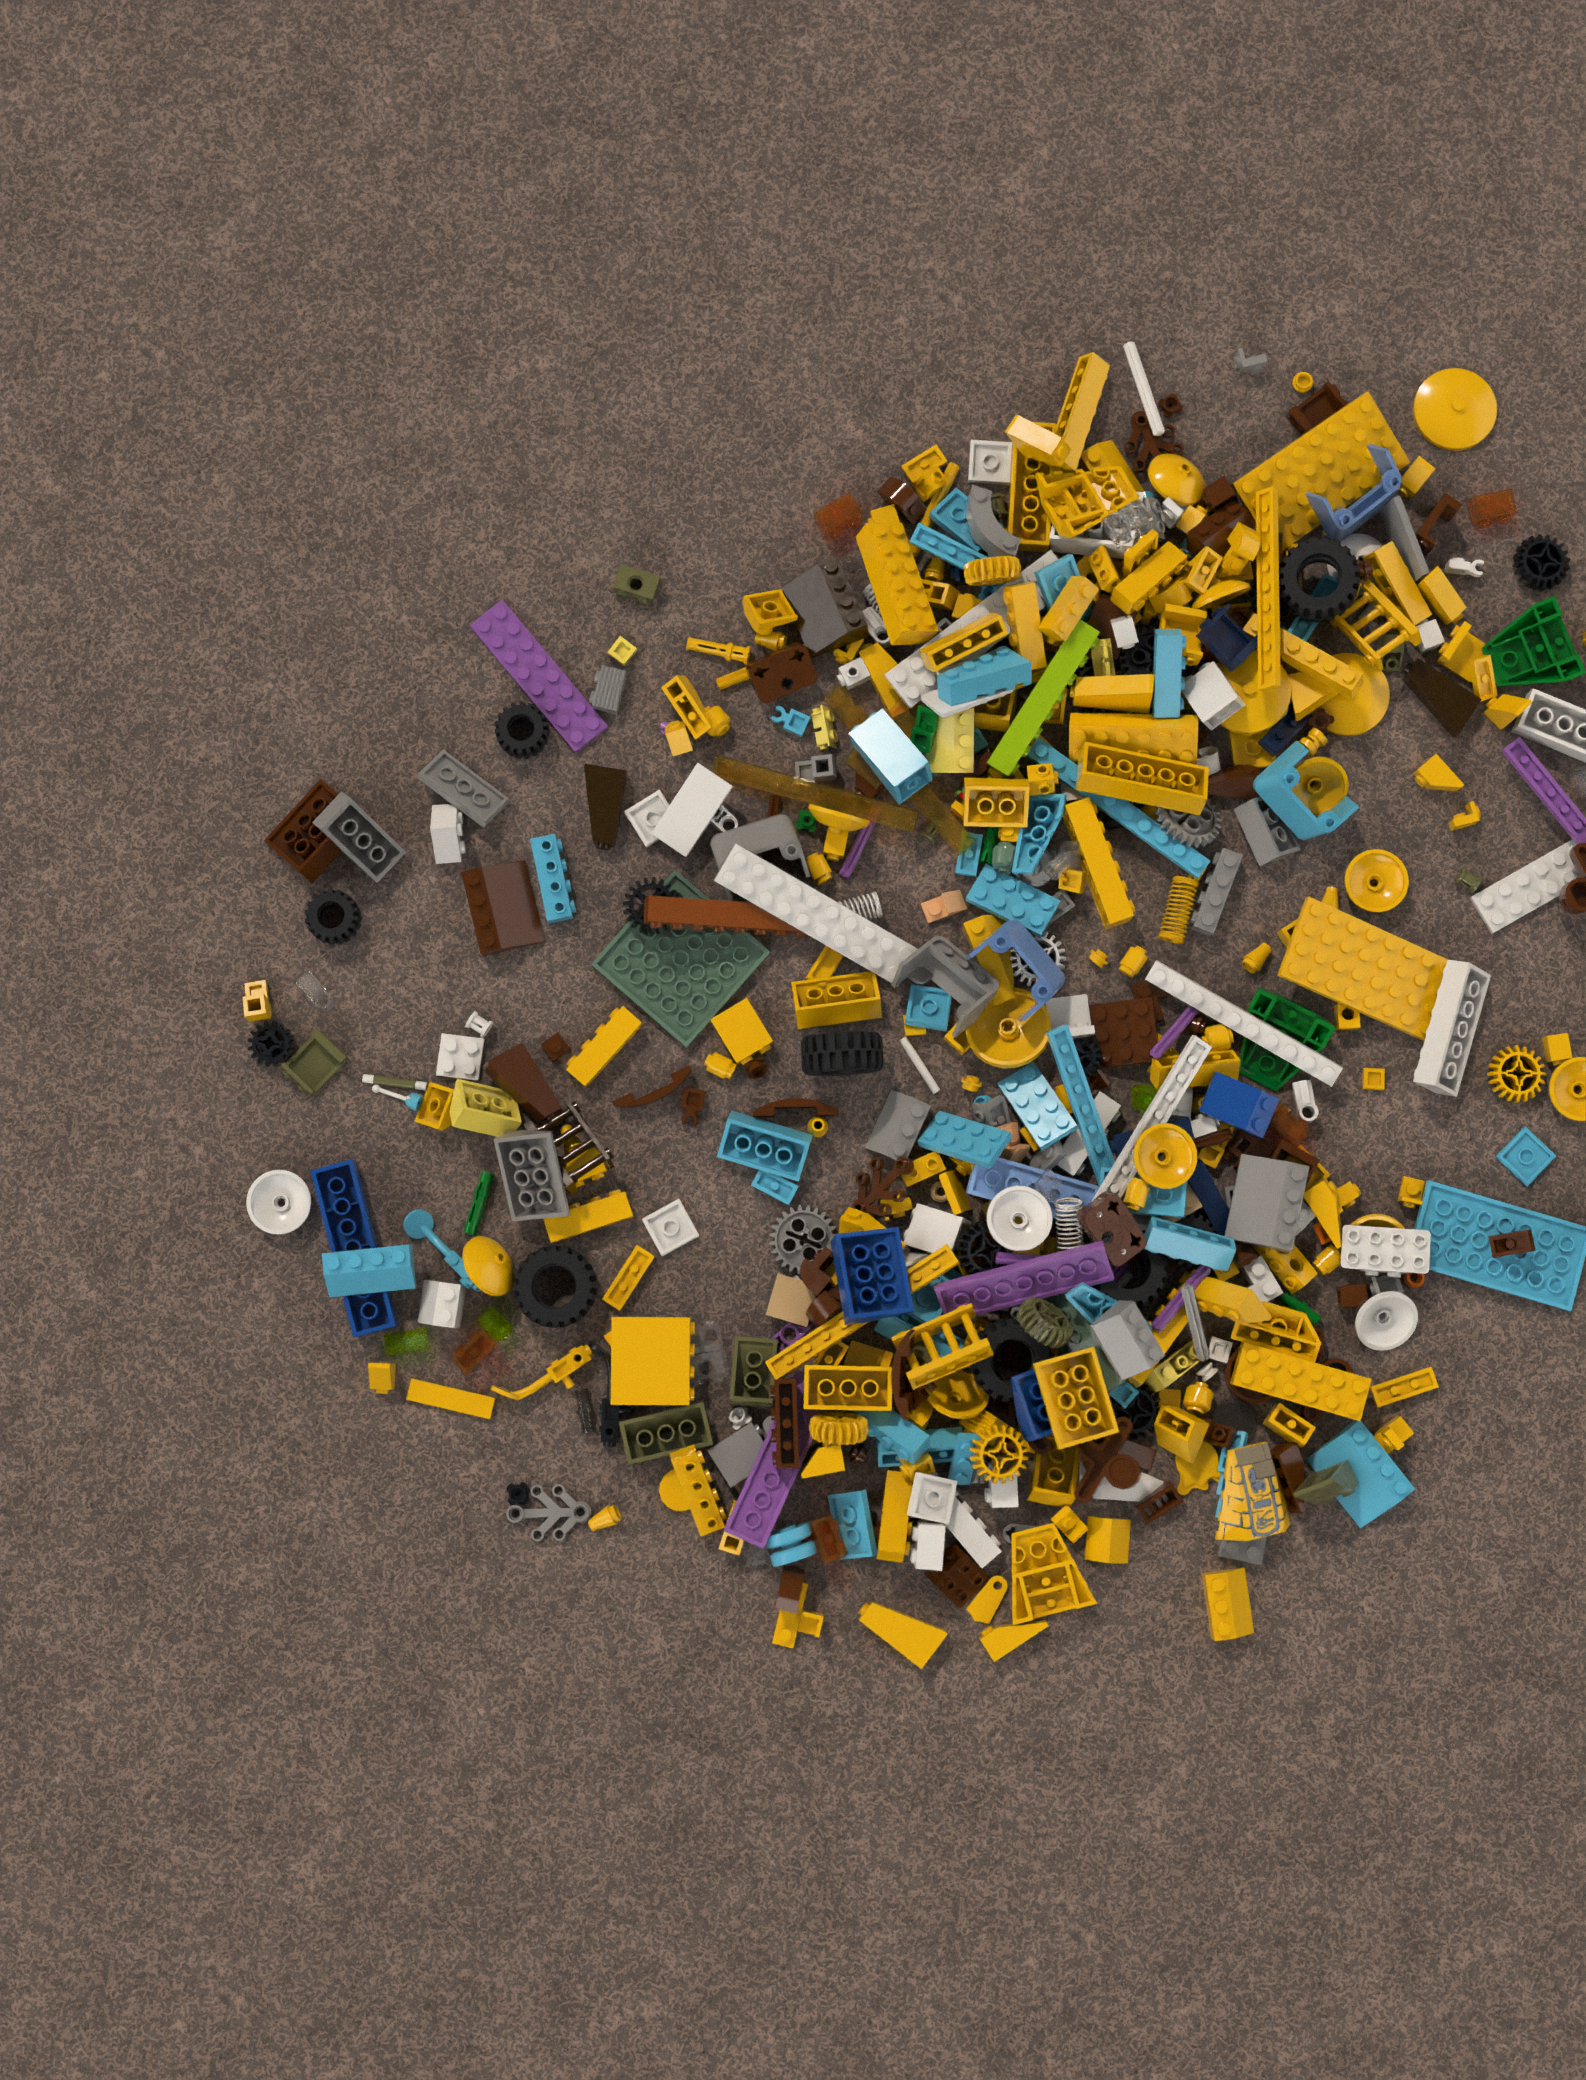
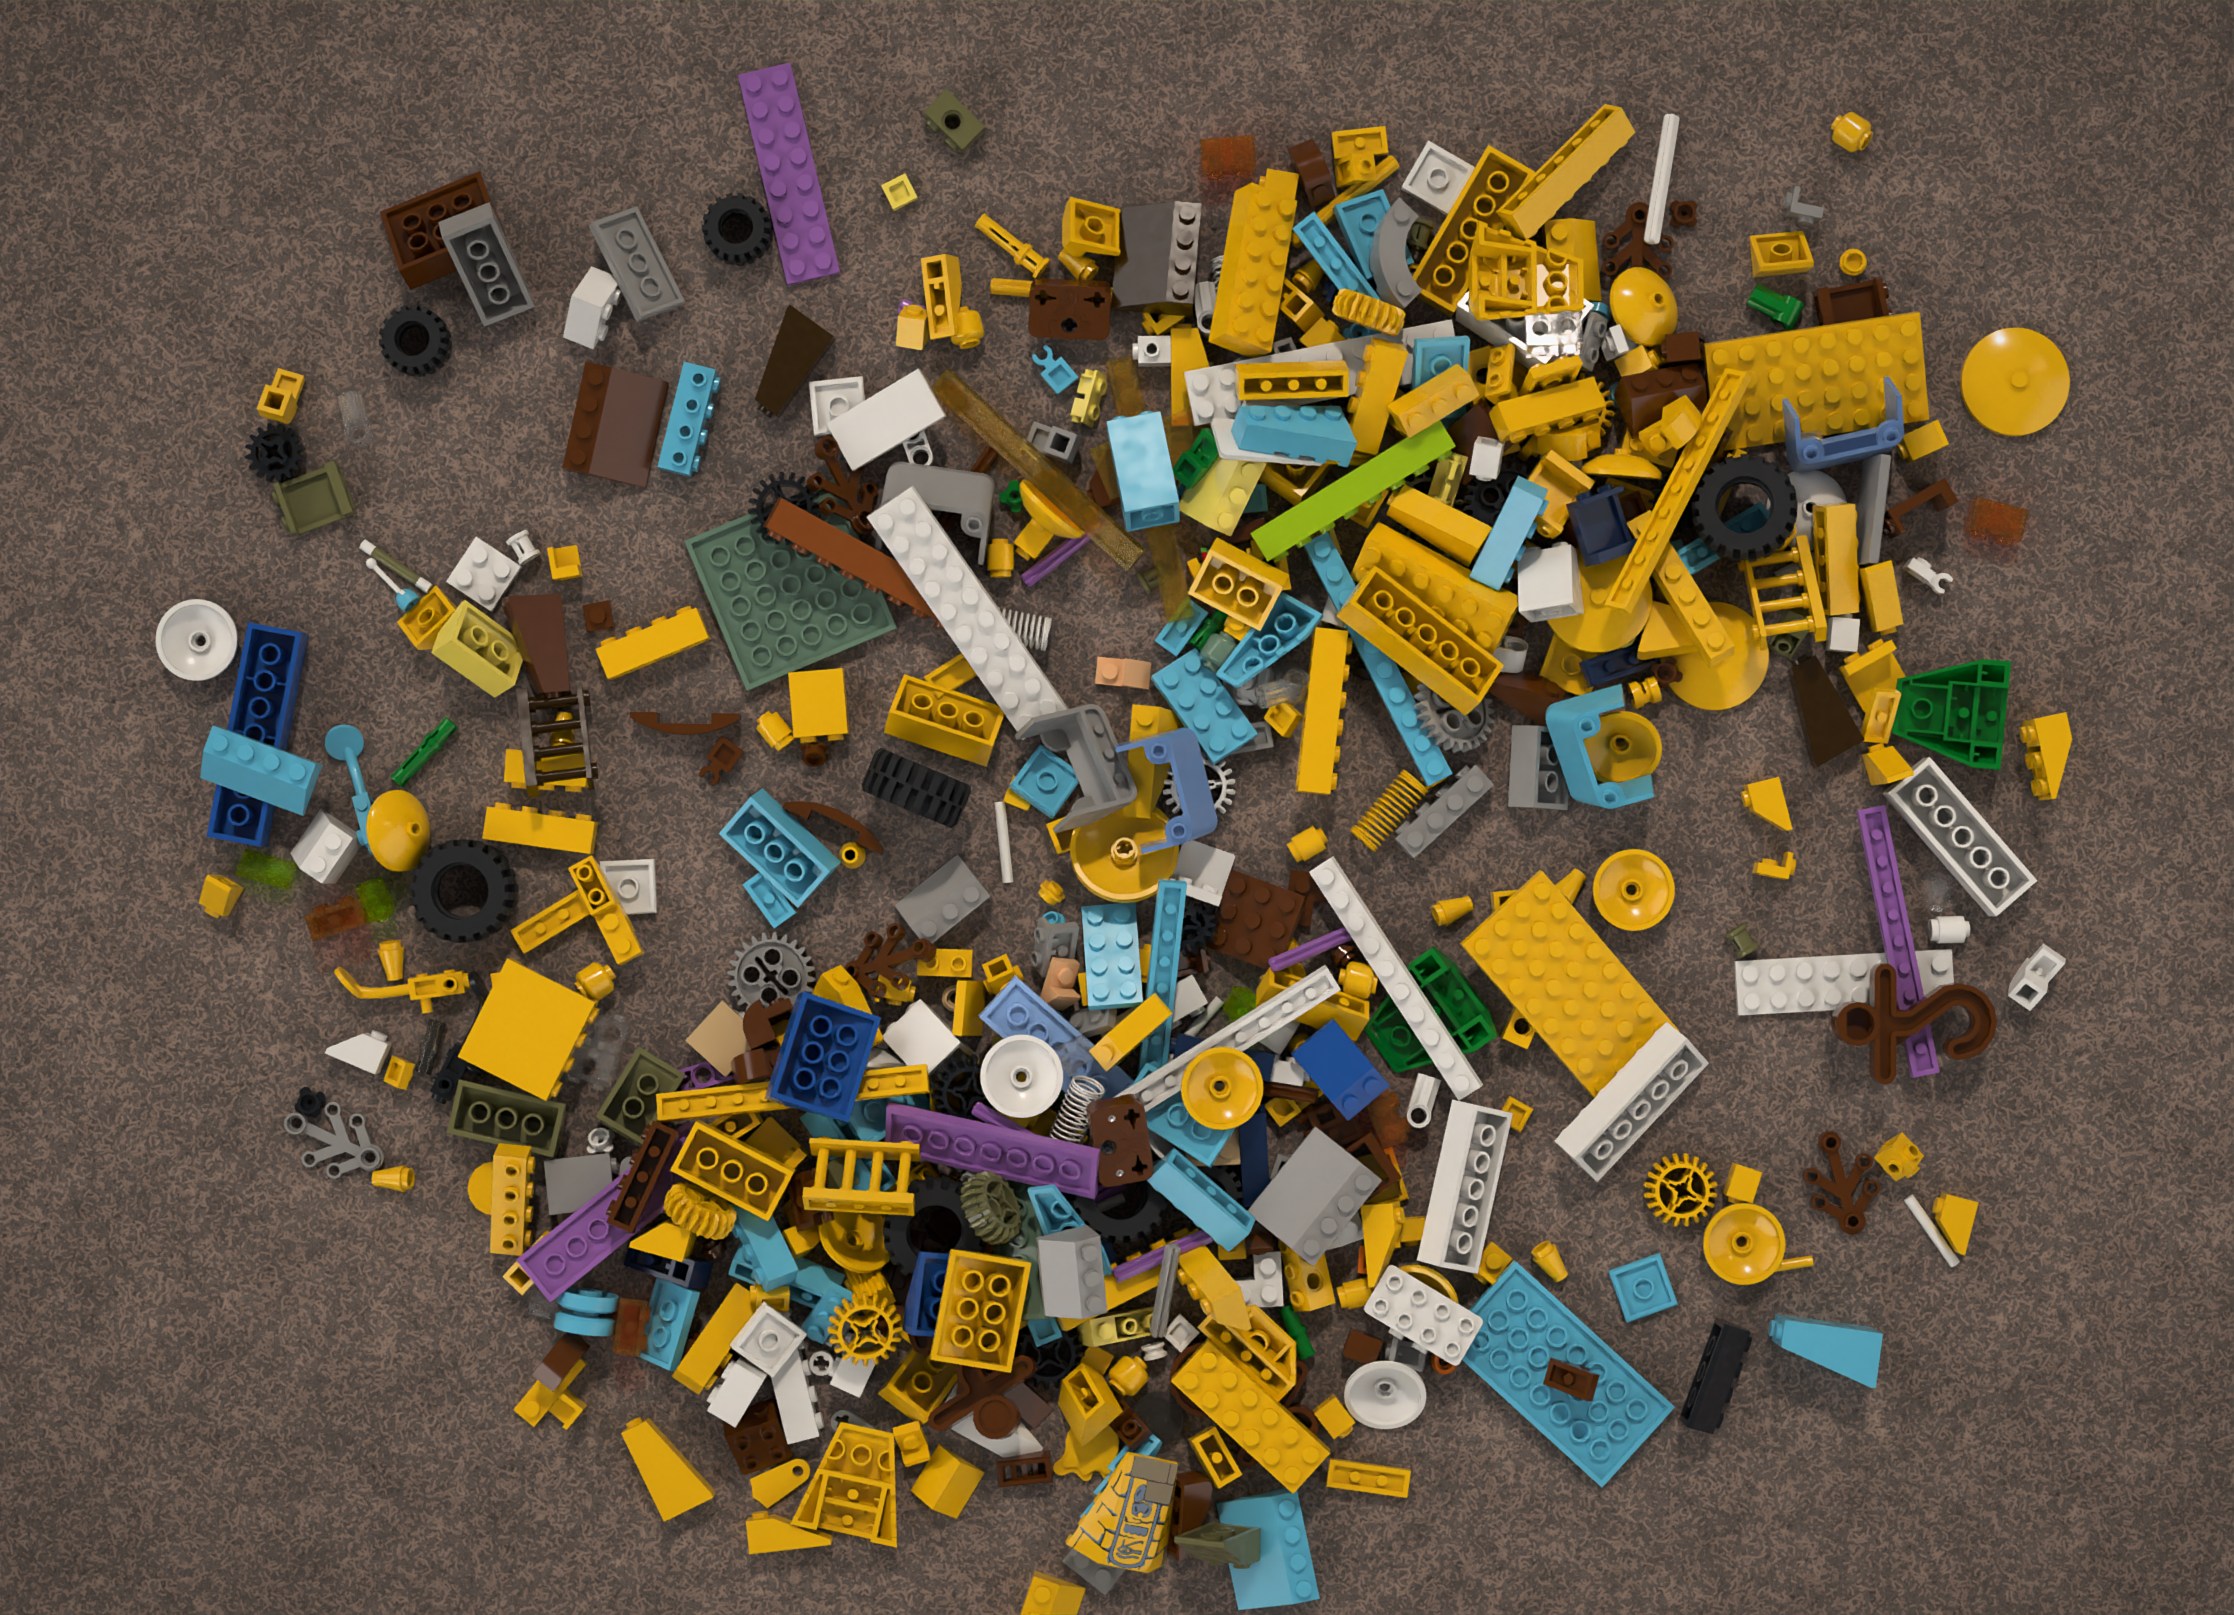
camera: 25 degrees right, 5 degrees up
(450, 1398) = (286, 958): yellow tile -> none
(514, 1021) = (564, 563): none -> yellow panel
(526, 1360) = (392, 958): none -> yellow cone
(531, 1175) = (494, 751): light grey slope -> none
(538, 1437) = (363, 1051): none -> white slope
(571, 1440) = (399, 1072): none -> yellow plate
(608, 690) = (861, 230): light grey brick -> none
(664, 1250) = (606, 910): none -> yellow slope
(680, 1304) = (595, 981): none -> yellow head
(703, 885) = (844, 489): none -> reddish brown plant
(843, 1481) = (690, 1273): none -> dark blue slope
(902, 1398) = (788, 1211): reddish brown slope -> none
(964, 1139) = (1008, 954): medium azure plate -> none
(977, 1492) = (815, 1368): none -> white bush
(1037, 442) = (1497, 185): yellow slope -> none
(1042, 779) = (1305, 583): yellow brick -> none
(1079, 1150) = (1130, 1032): none -> yellow slope
(1098, 957) = (1270, 820): yellow plate -> none
(1122, 1120) = (1202, 1019): none -> white bar
(1136, 1194) = (1168, 1115): yellow brick -> none
(1202, 569) = (1615, 430): yellow slope -> none
(1251, 400) = (1780, 254): none -> yellow slope
(1256, 295) = (1851, 132): none -> yellow head
(1271, 436) = (1779, 308): none -> green piece
(1358, 1355) = (1334, 1417): none -> yellow brick
(1366, 569) = (1805, 520): reddish brown plate -> none
(1366, 1145) = (1464, 1187): none -> white brick
(1393, 1434) = (1327, 1525): yellow brick -> none
(1451, 1169) = (1549, 1260): none -> yellow cone
(1524, 560) = (2011, 605): black gear -> none

